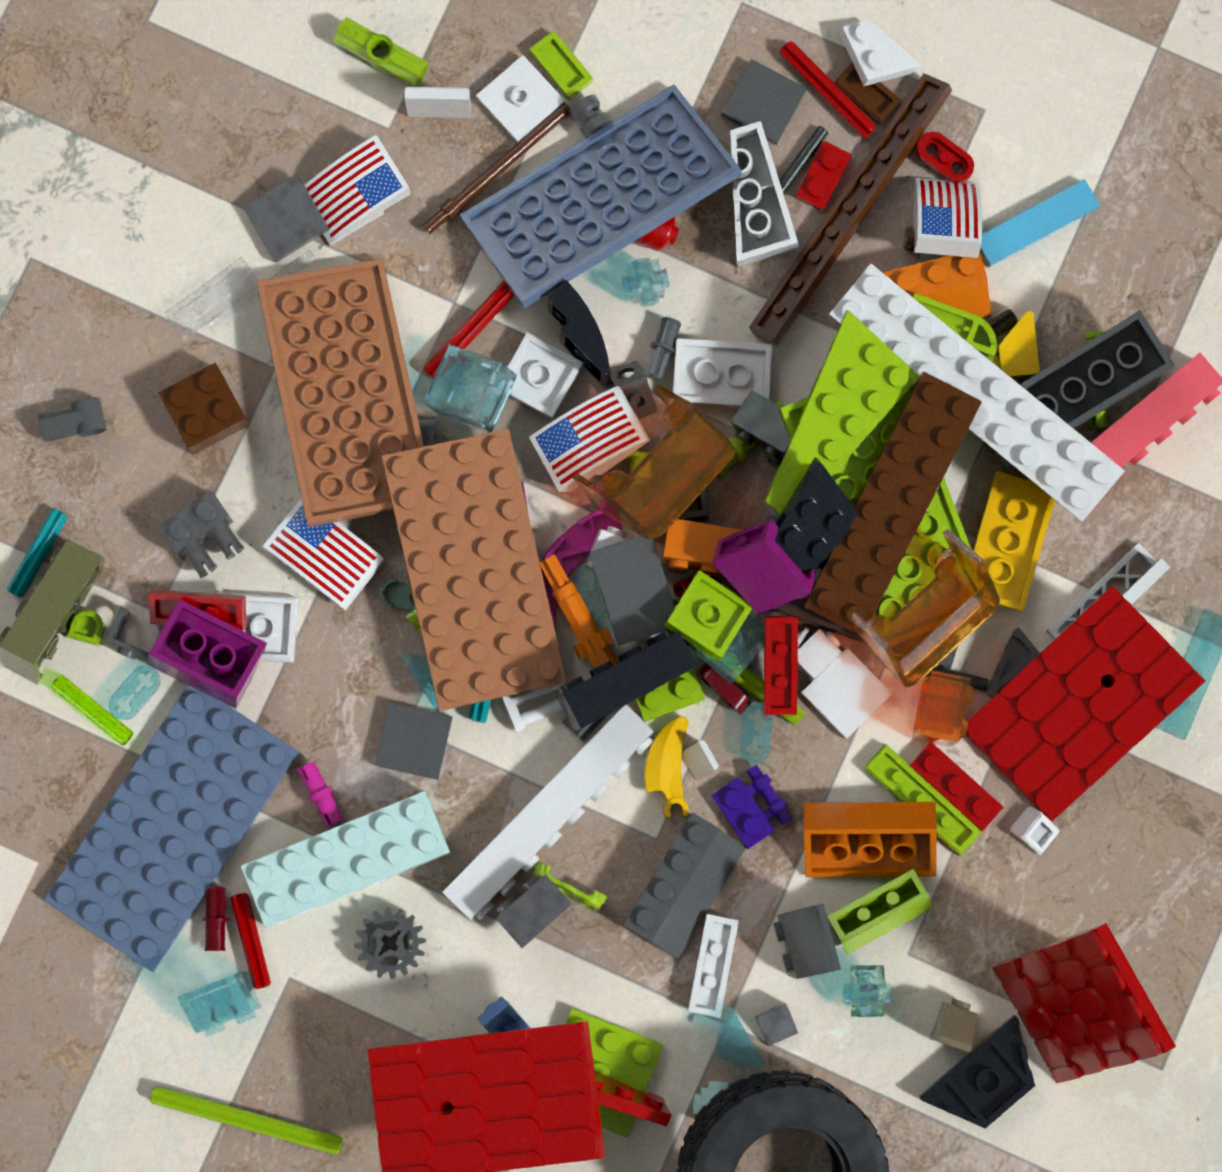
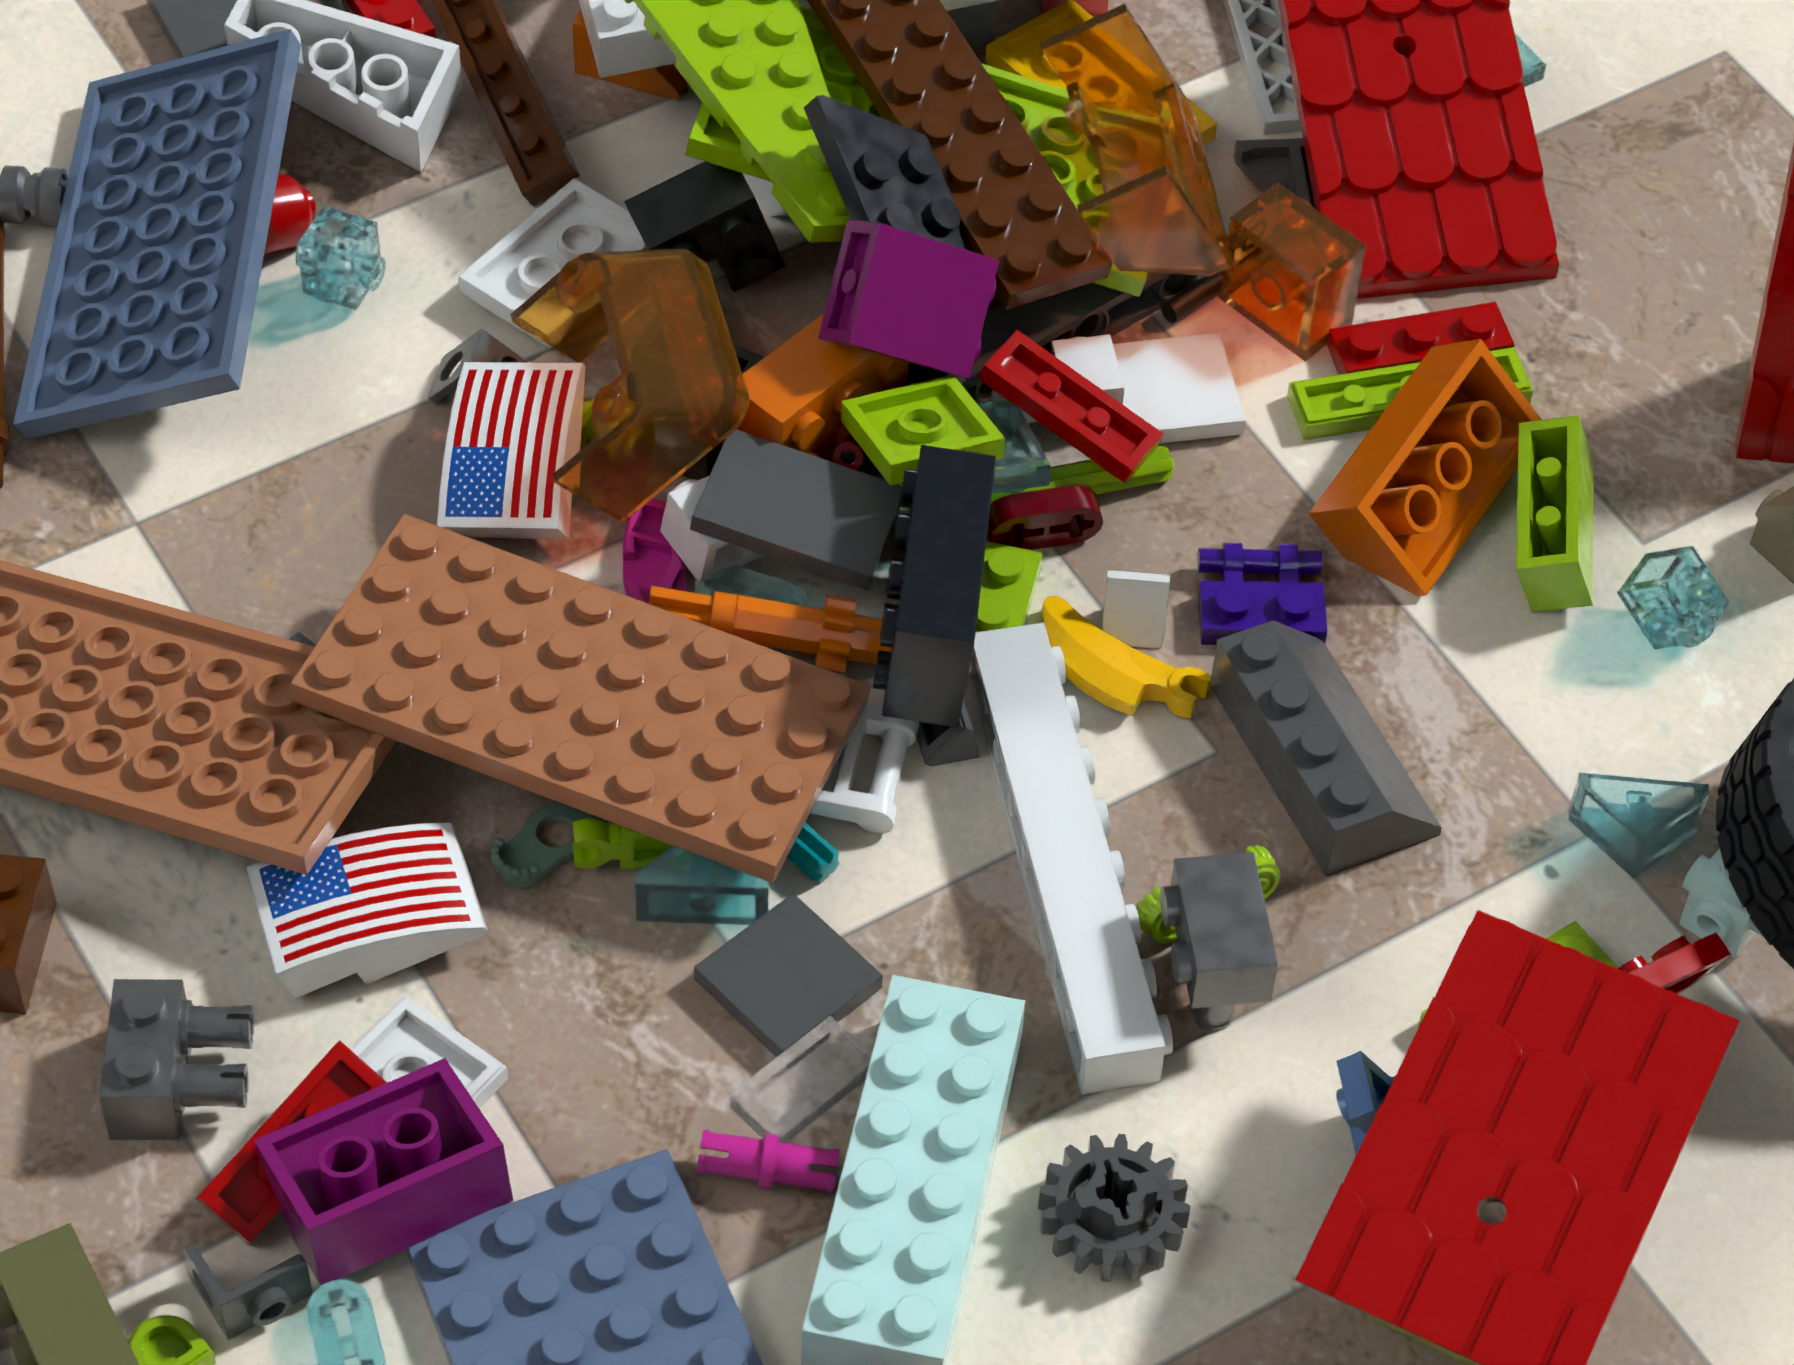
camera: 50 degrees left, 30 degrees down
(470, 388) = (290, 546): clear light blue container -> none
(472, 325) = (197, 519): red axle -> none
(542, 375) = (354, 471): white plate -> none
(580, 331) = (346, 364): black slope -> none
(662, 348) = (454, 304): dark grey axle -> none
(713, 965) = (1488, 781): white plate -> none
(748, 732) = (1149, 526): clear light blue beam -> none
(776, 1024) = (1642, 750): flat silver slope -> none
(807, 942) = (1544, 599): dark grey slope -> none
(1034, 830) = (1555, 293): white slope -> none

